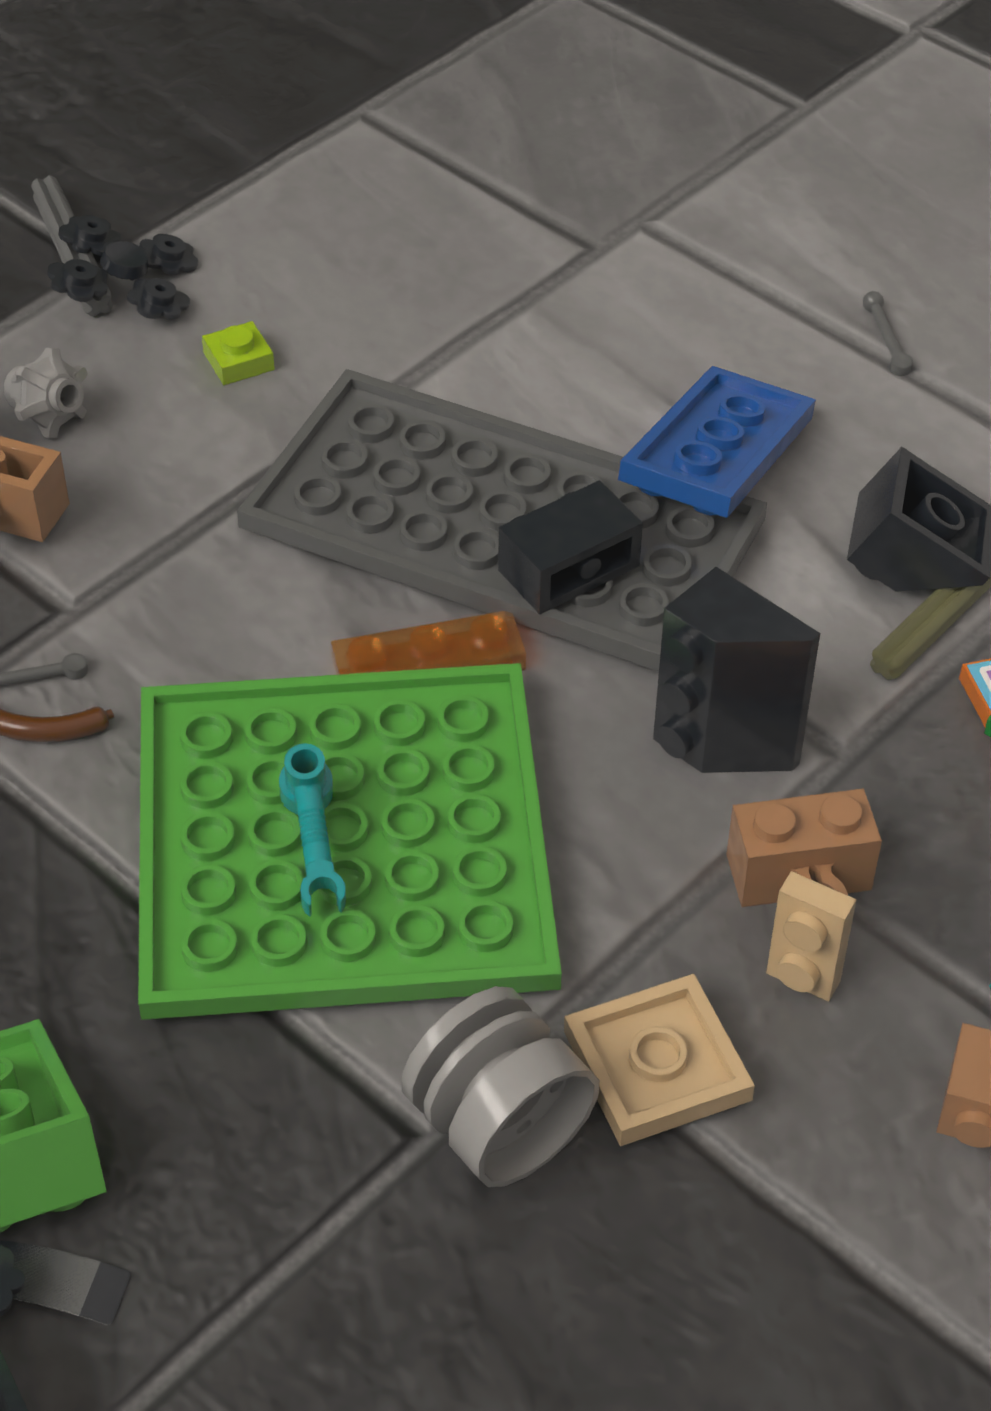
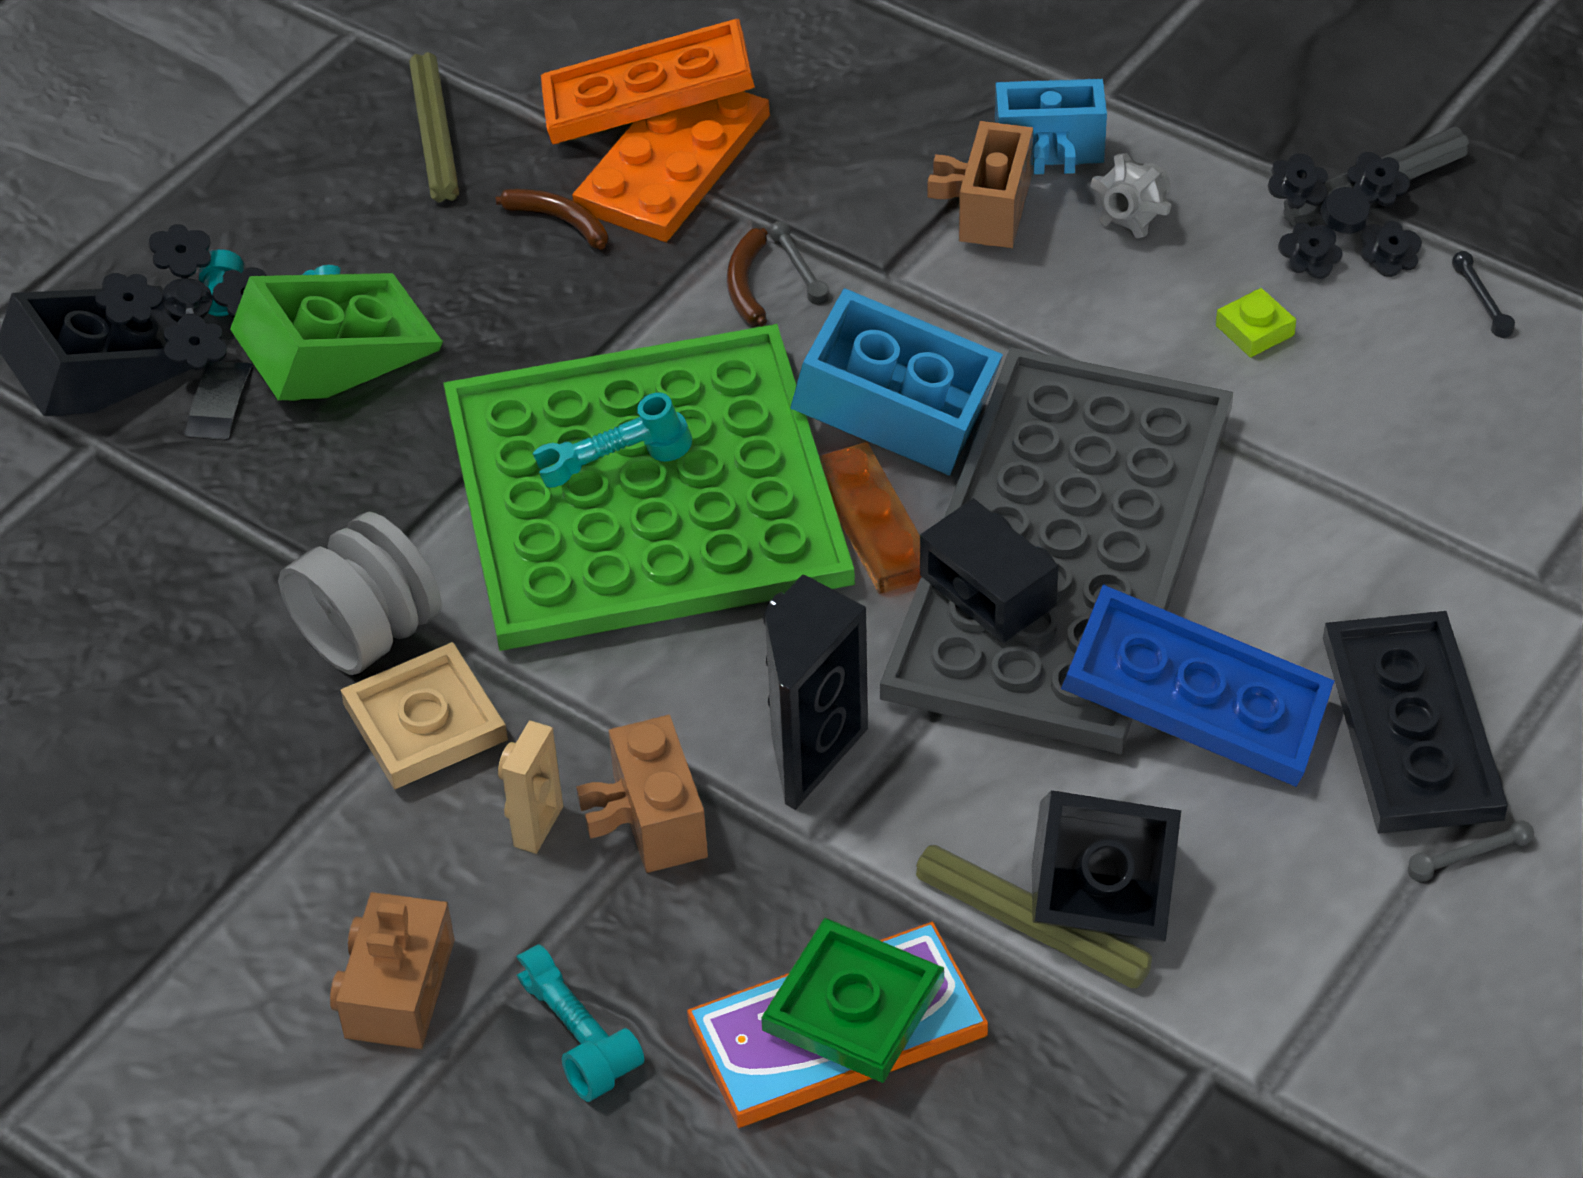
camera: 85 degrees right, 0 degrees up
(283, 586) = (896, 381): none -> dark azure brick
(287, 210) = (1502, 324): none -> black hinge
(756, 332) = (1414, 722): none -> black plate

